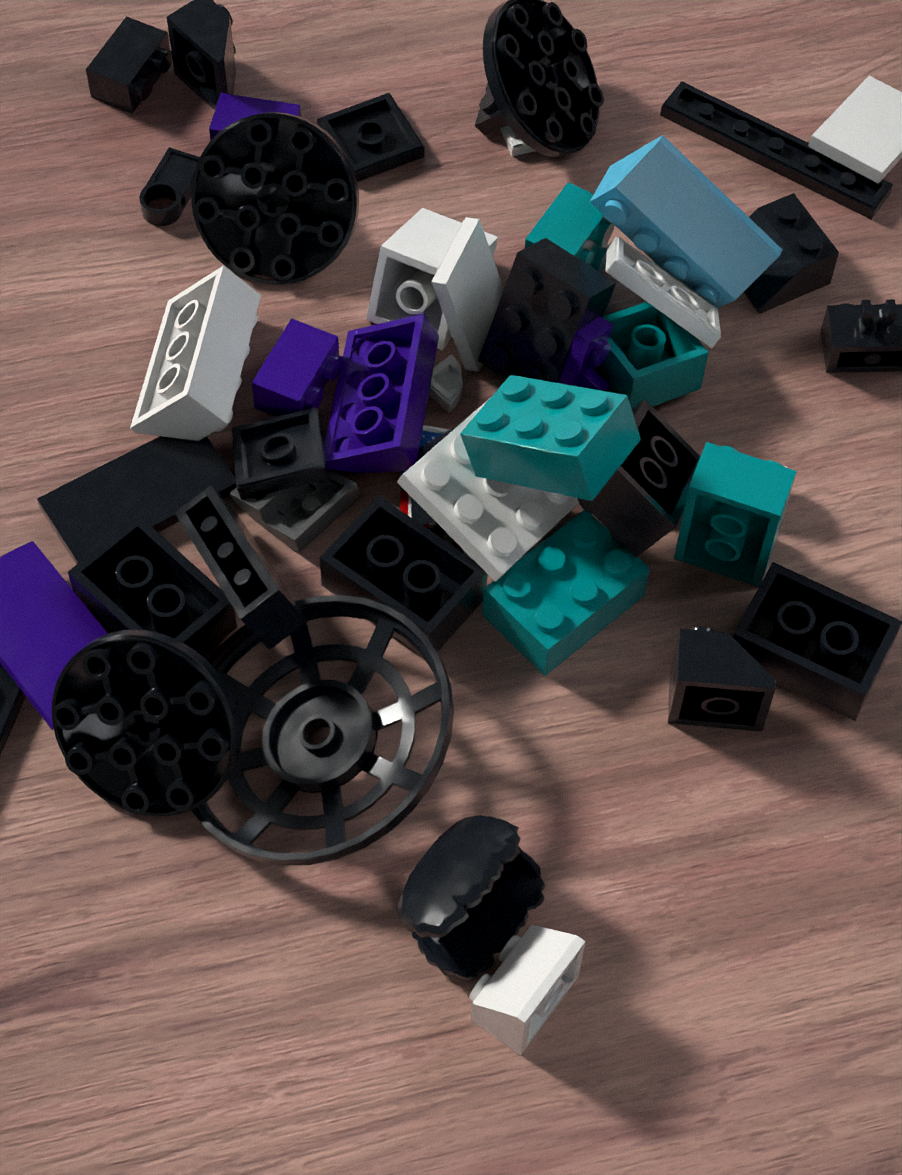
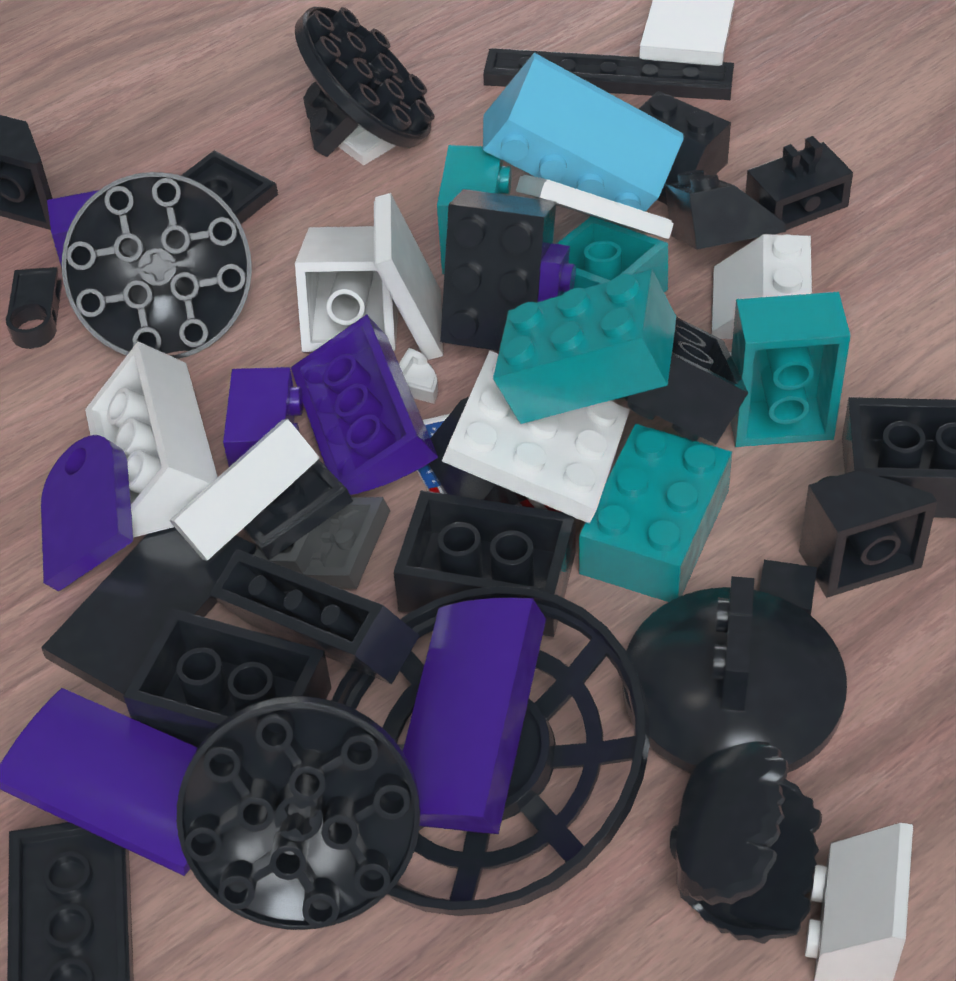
camera: 20 degrees left, 10 degrees down
(120, 395) = (84, 510): none -> dark purple tile
(245, 433) = (244, 489): none -> white tile
(316, 700) = (472, 710): none -> dark purple slope
(547, 760) = (735, 672): none -> black bracket
(636, 703) = (789, 582): none -> black tile
(777, 337) = (715, 212): none -> black slope
(781, 421) = (761, 269): none -> white slope

